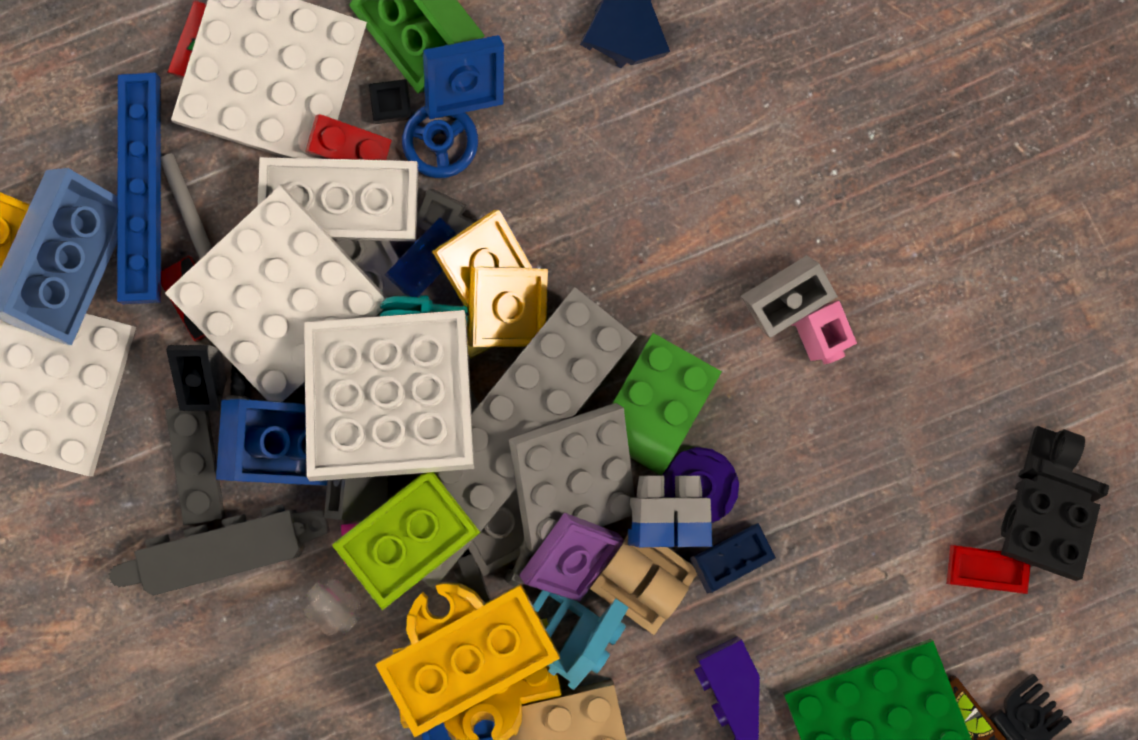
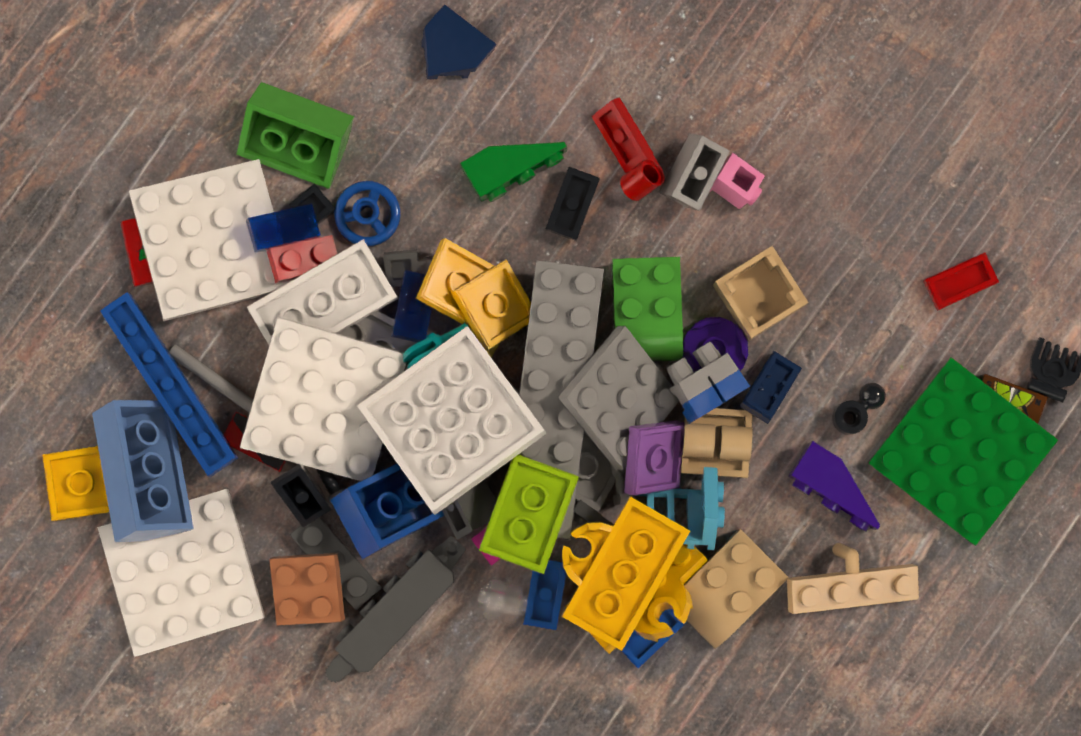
camera: 25 degrees left, 0 degrees up
(147, 474) = (307, 589): none -> nougat plate
(345, 101) = (283, 228): none -> clear blue plate
(377, 630) = (545, 596): none -> blue plate
(464, 77) = (359, 156): blue plate -> none
(600, 174) = (503, 165): none -> green slope
(647, 254) = (572, 203): none -> black plate
(738, 235) = (630, 149): none -> red plate
(780, 457) = (760, 293): none -> tan container
(828, 630) = (870, 397): none -> black plate
(1054, 507) = (979, 207): black plate -> none

